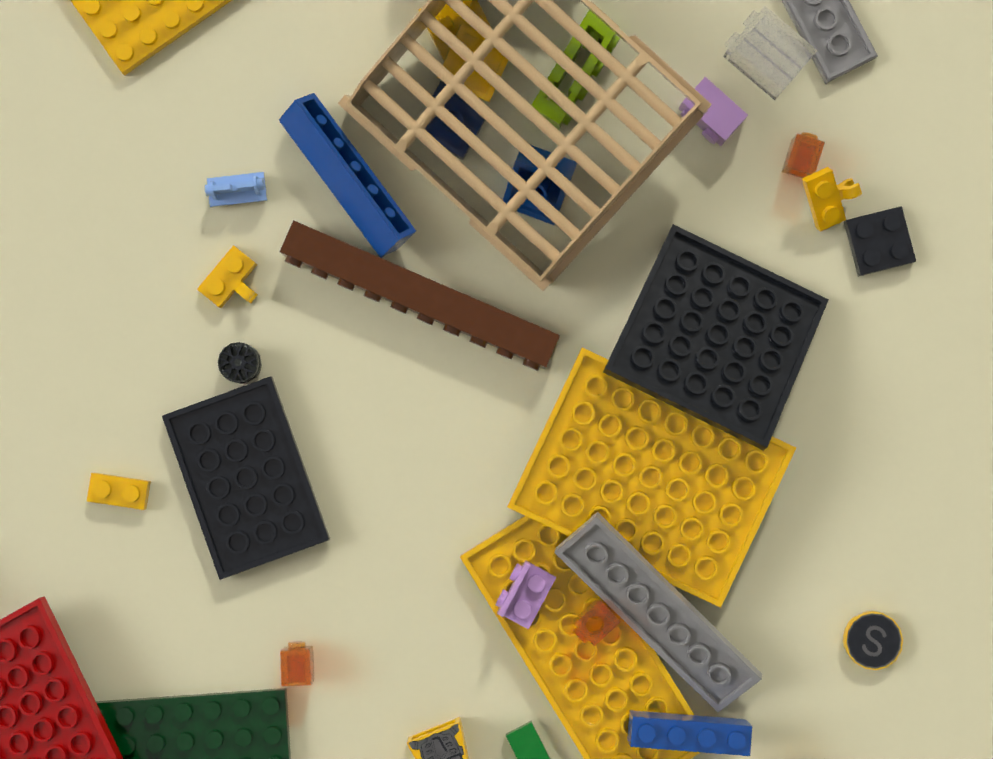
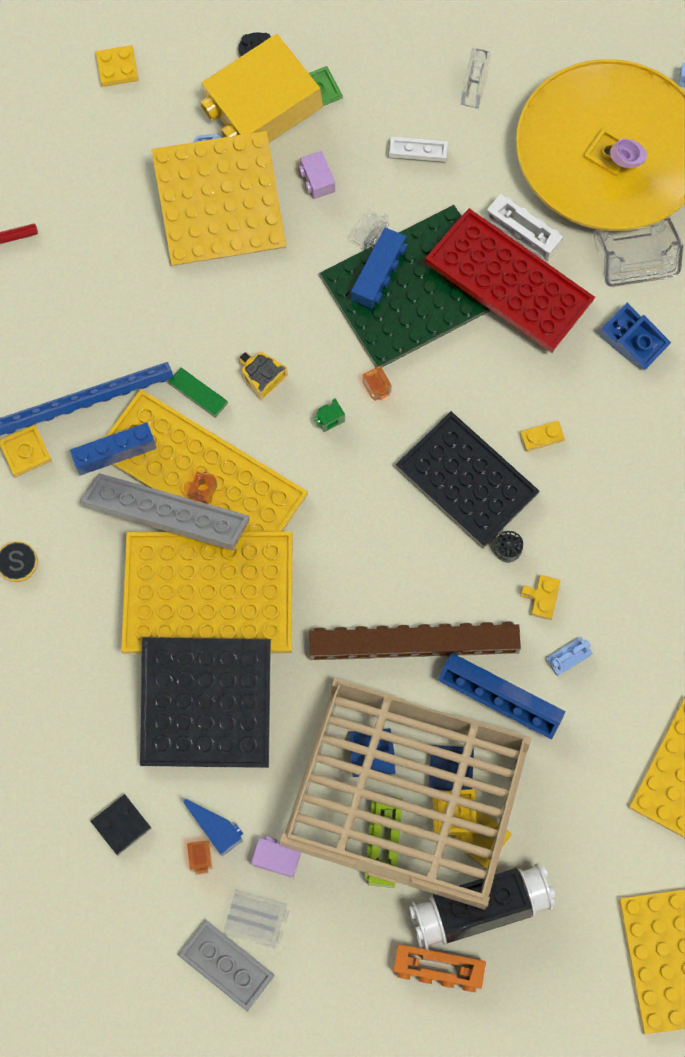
camera: 155 degrees right, 15 degrees down
(382, 649) = (329, 416): none -> green brick
(525, 594) = (254, 486): lavender bracket -> none
(768, 179) = (218, 829): none -> blue slope
(826, 196) = (171, 833): yellow plate -> none

